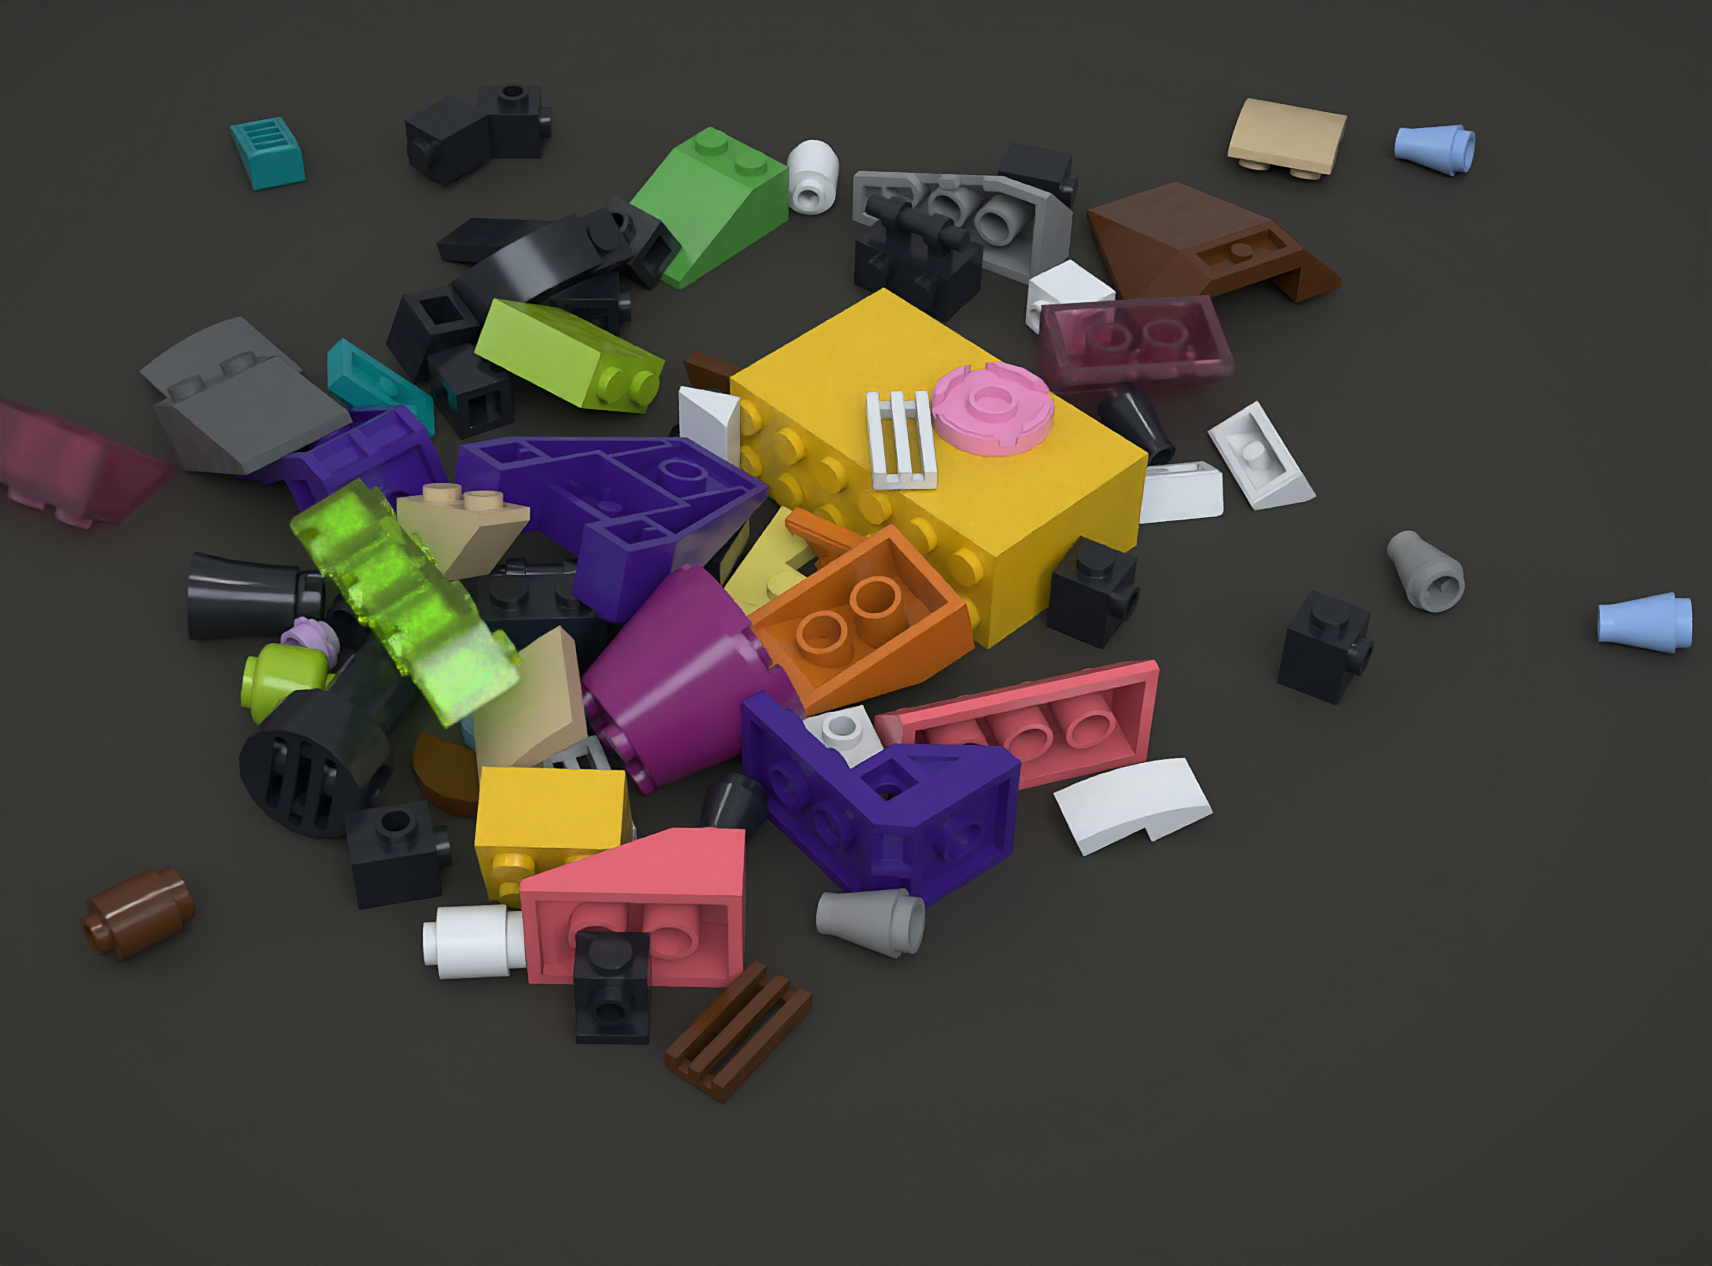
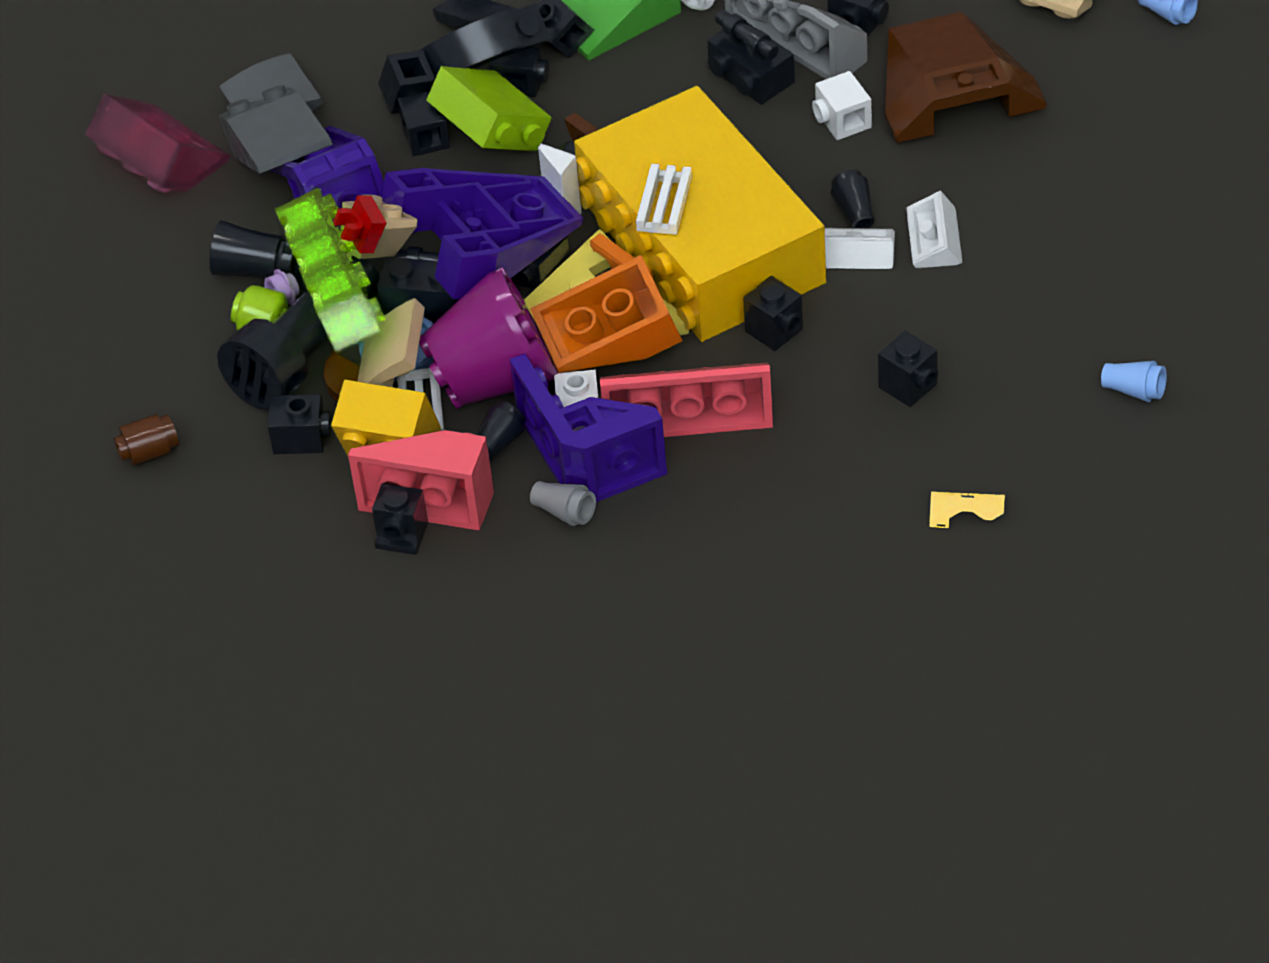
camera: 20 degrees right, 5 degrees up
(364, 381) = (364, 119): teal slope -> none
(447, 522) = (362, 224): none -> red tile
(475, 941) = (327, 482): white brick -> none
(713, 1020) = (462, 550): reddish brown tile -> none
(992, 409) = (732, 184): bright pink tile -> none
(1132, 343) = (865, 139): clear pink slope -> none
(1134, 797) = (753, 449): white slope -> none
(1427, 574) = (1003, 328): light grey cone -> none
(1471, 841) = (947, 504): none -> yellow piece

